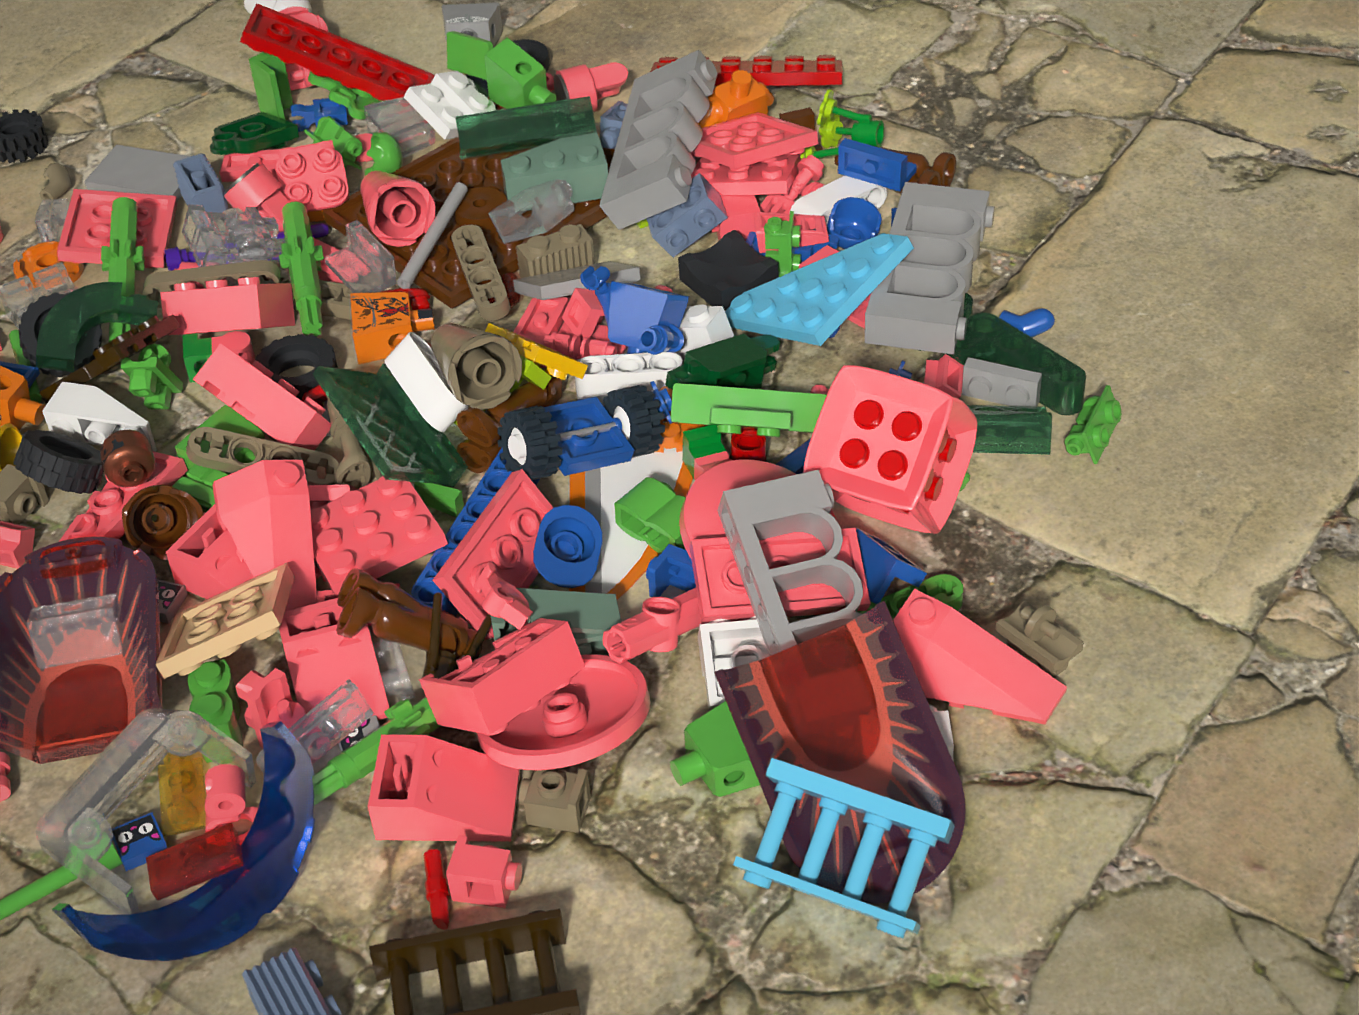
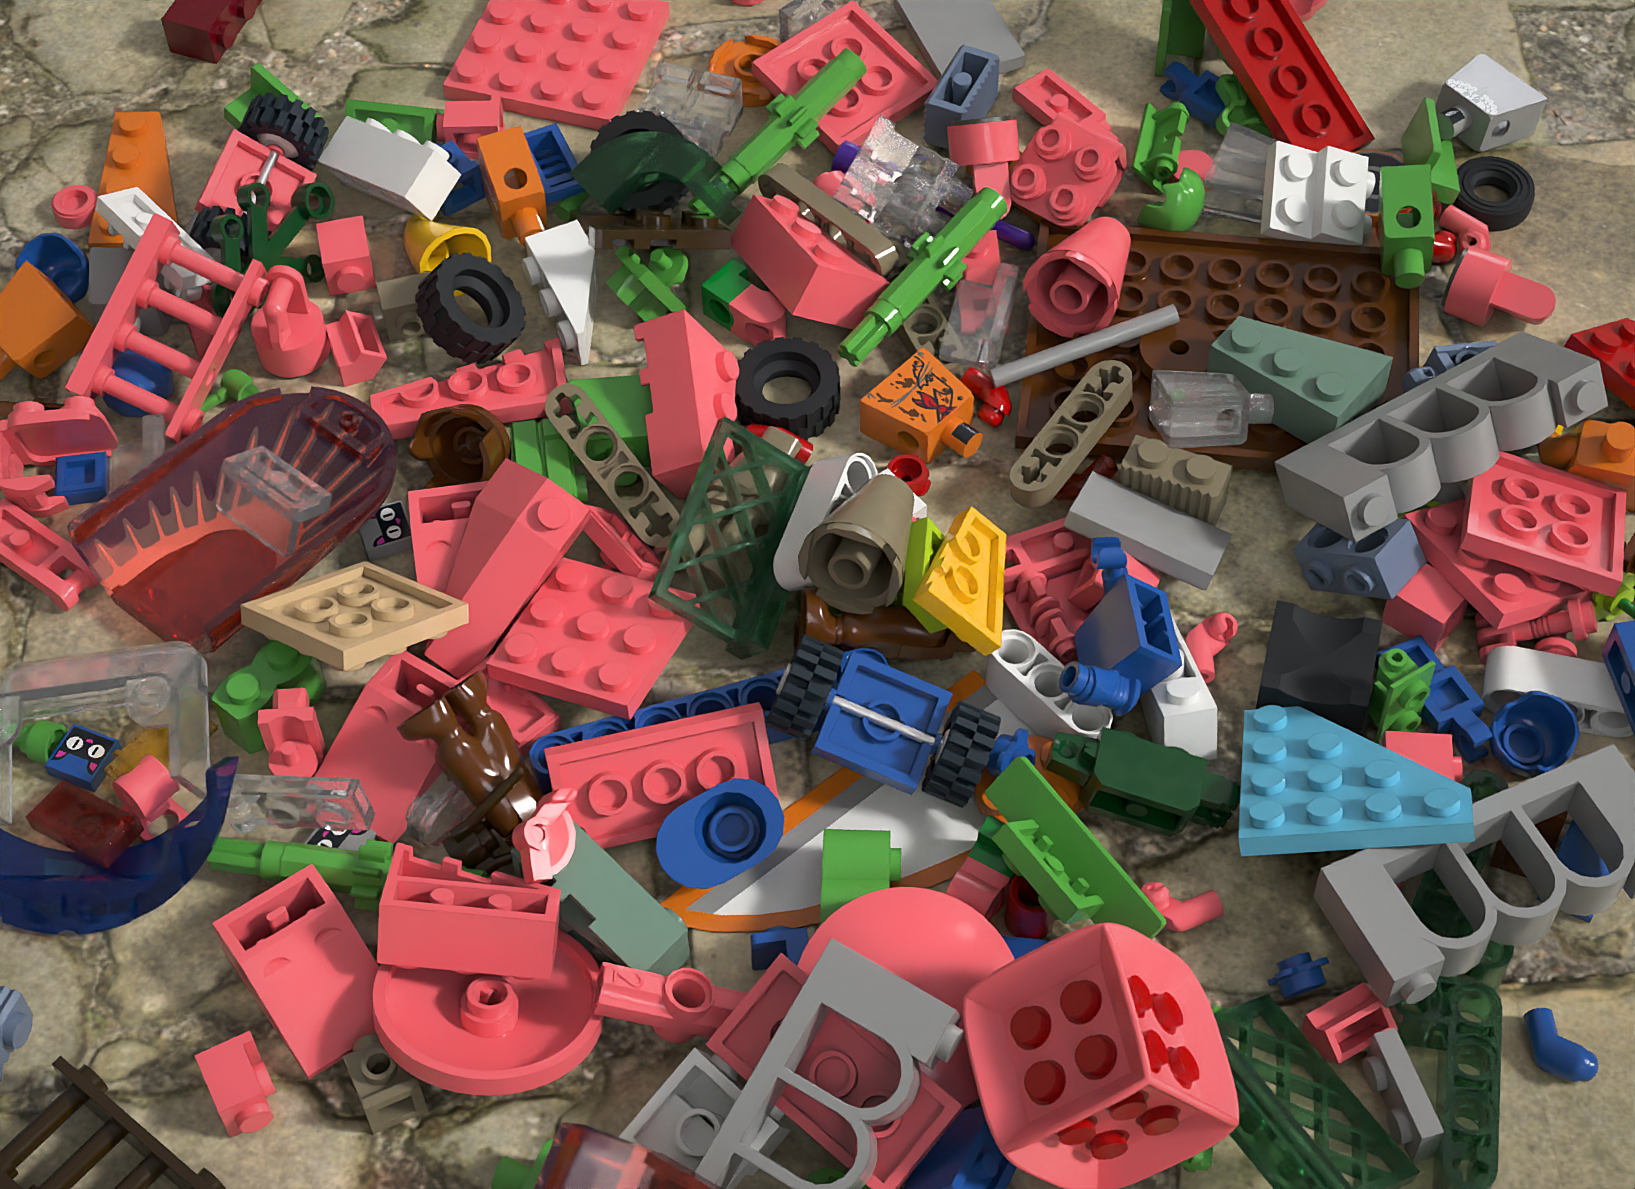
camera: 50 degrees right, 10 degrees up
(127, 458) = (512, 357): copper head -> none
(252, 134) = (1095, 65): dark green plate -> none
(436, 888) = (189, 1072): red piece -> none
(441, 497) = (721, 663): bright green piece -> none
(523, 127) = (1307, 298): clear green fence -> none
(807, 222) = (1425, 645): coral slope -> none

